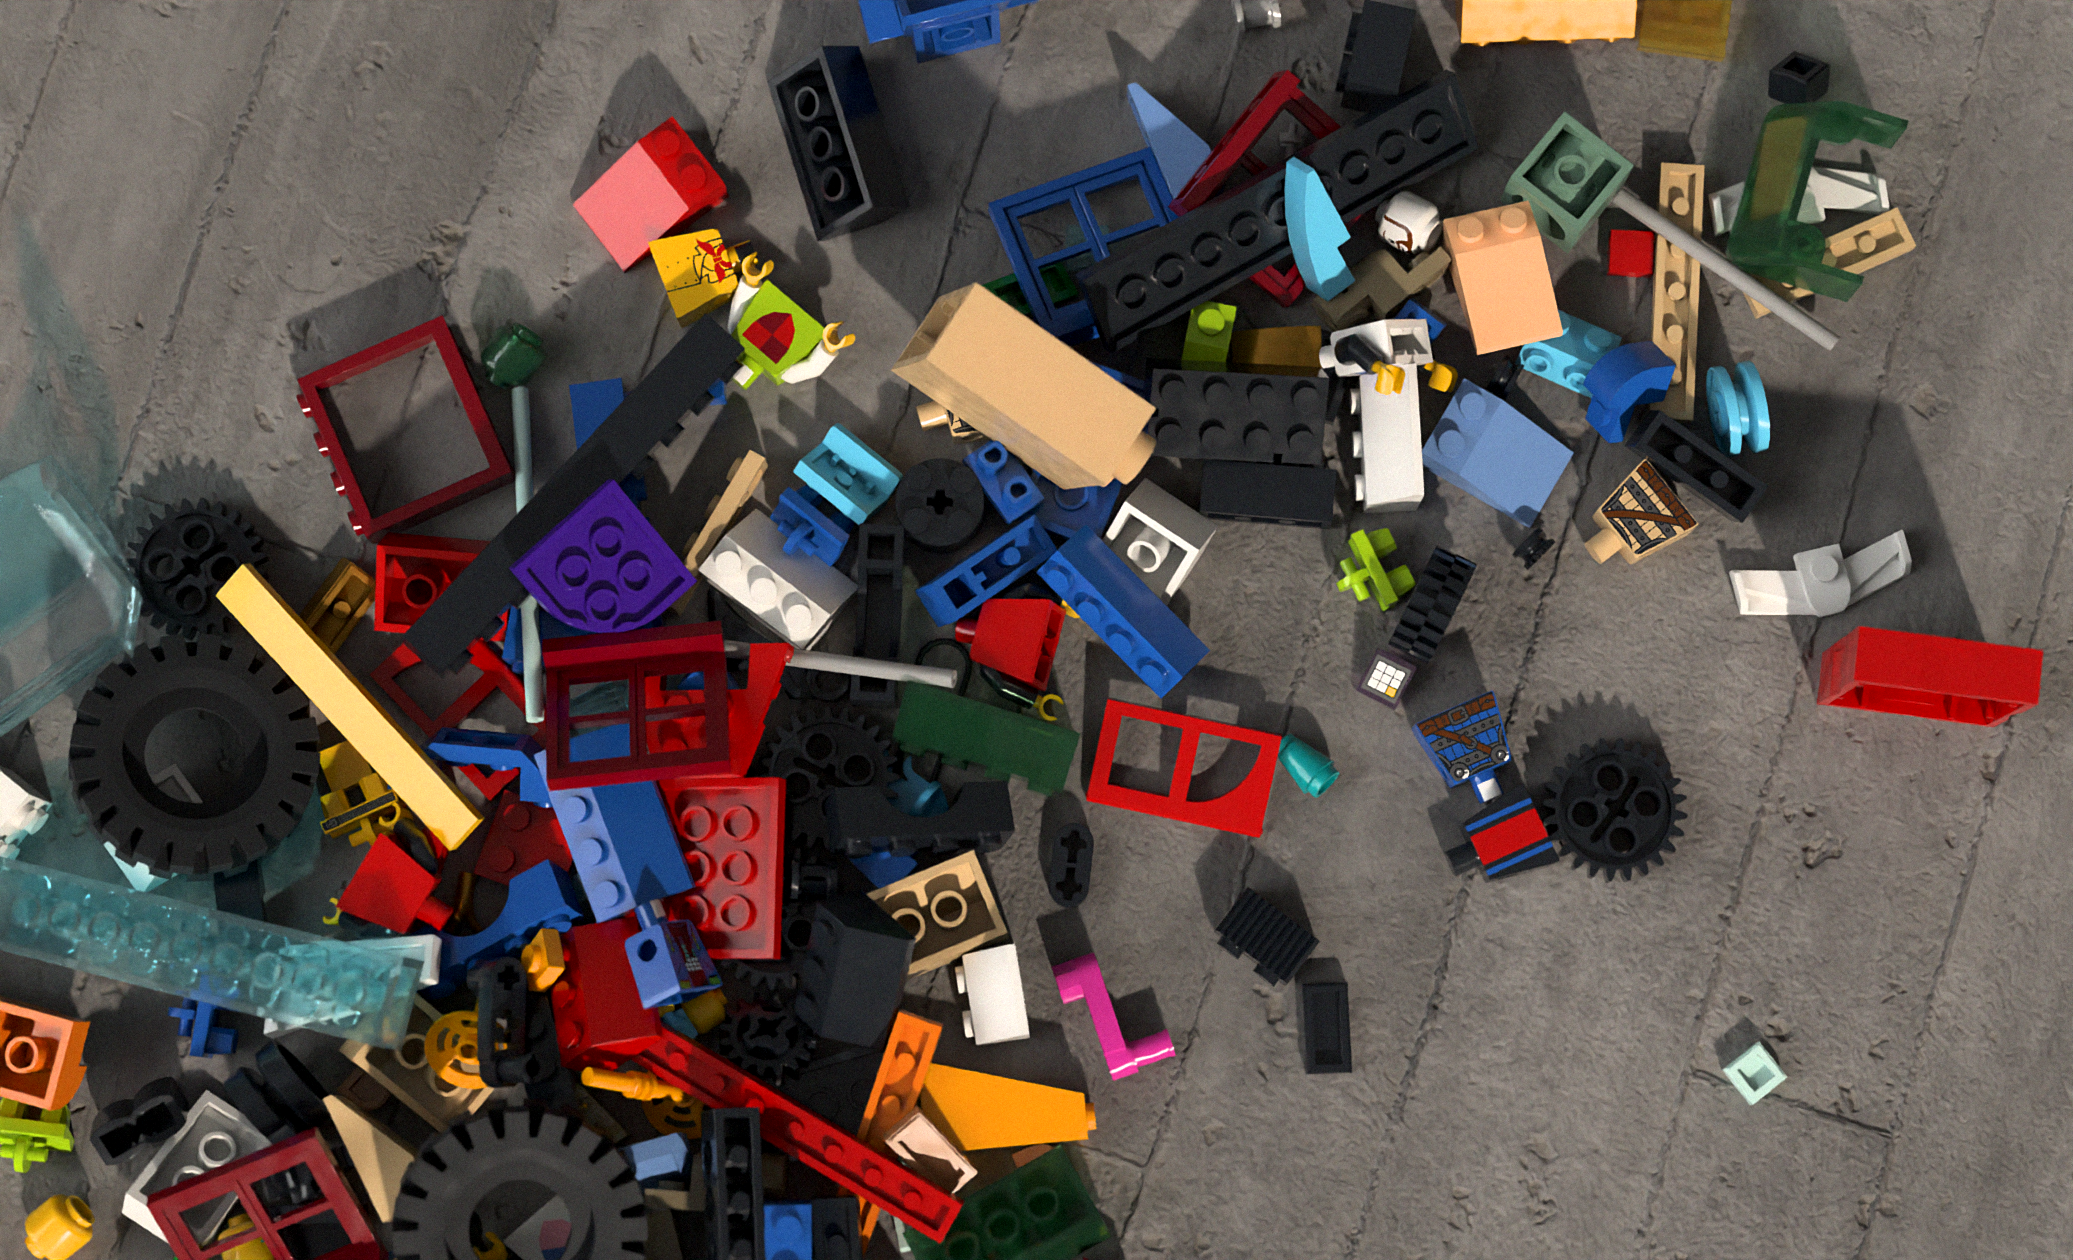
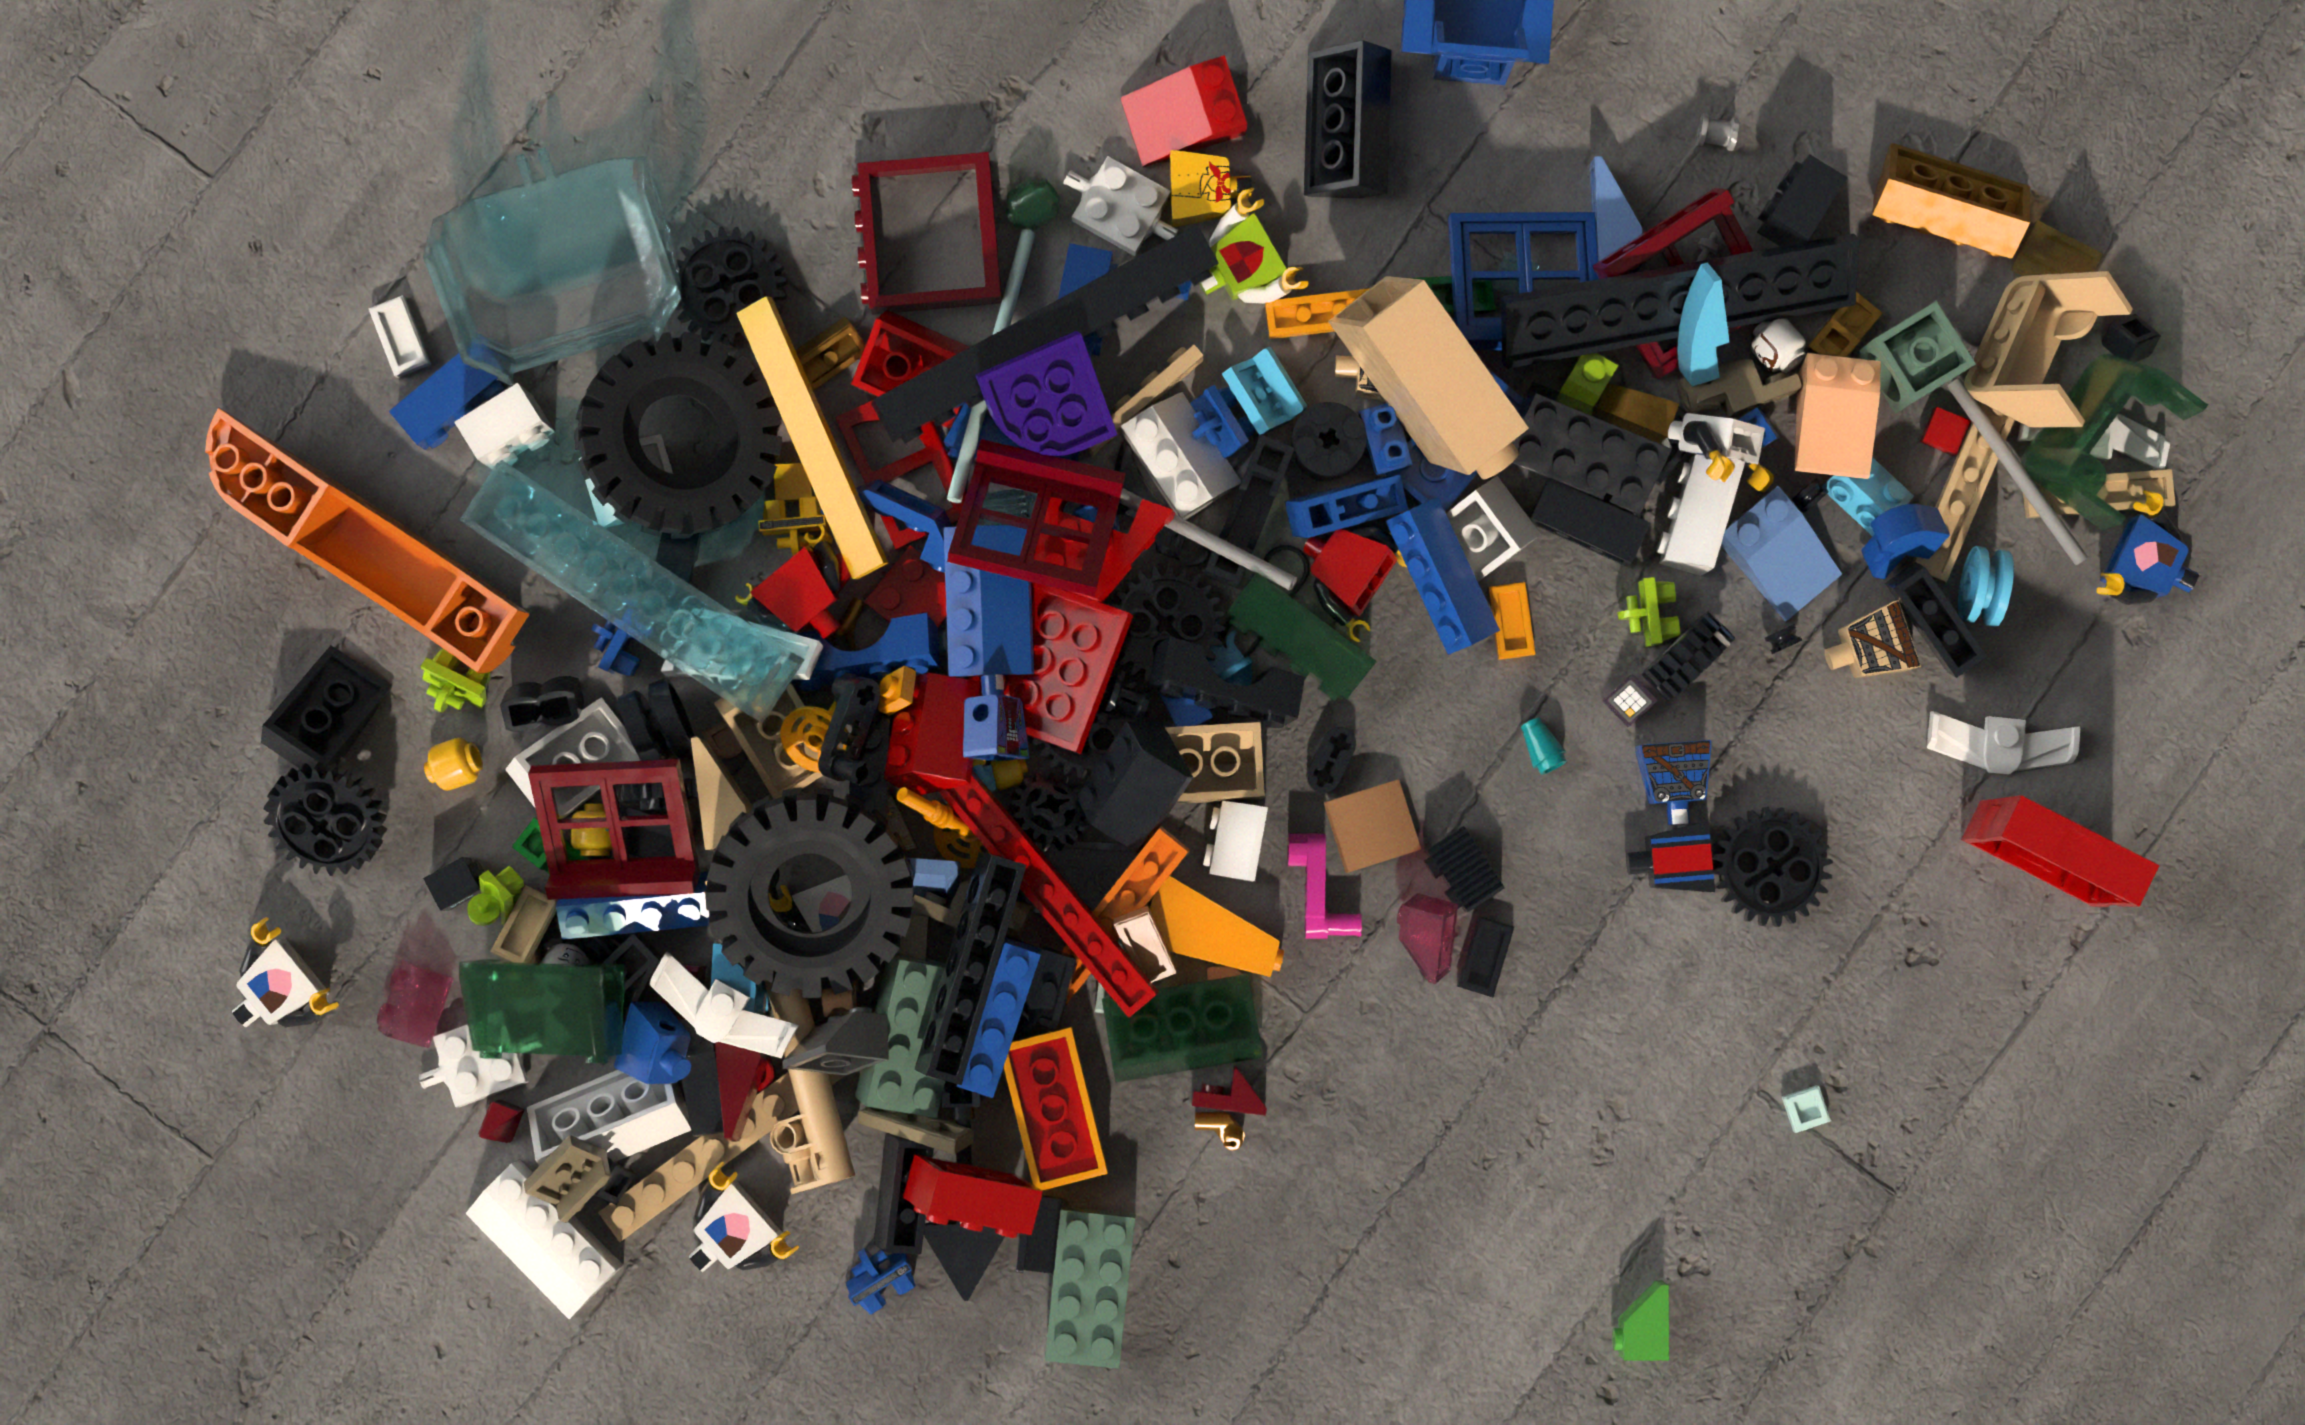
camera: 15 degrees right, 5 degrees up
(614, 324) = (1121, 205): none -> white plate
(864, 372) = (1306, 313): none -> light orange plate
(1144, 924) = (1372, 826): none -> medium nougat slope
(1221, 632) = (1512, 615): none -> light orange tile
(1235, 811) = (1475, 762): red window -> none
(1252, 1025) = (1428, 934): none -> clear pink slope
(1477, 178) = (1845, 328): none -> pearl gold slope
(1681, 119) = (2025, 337): none -> tan windscreen
(1907, 314) = (2147, 557): none -> torso

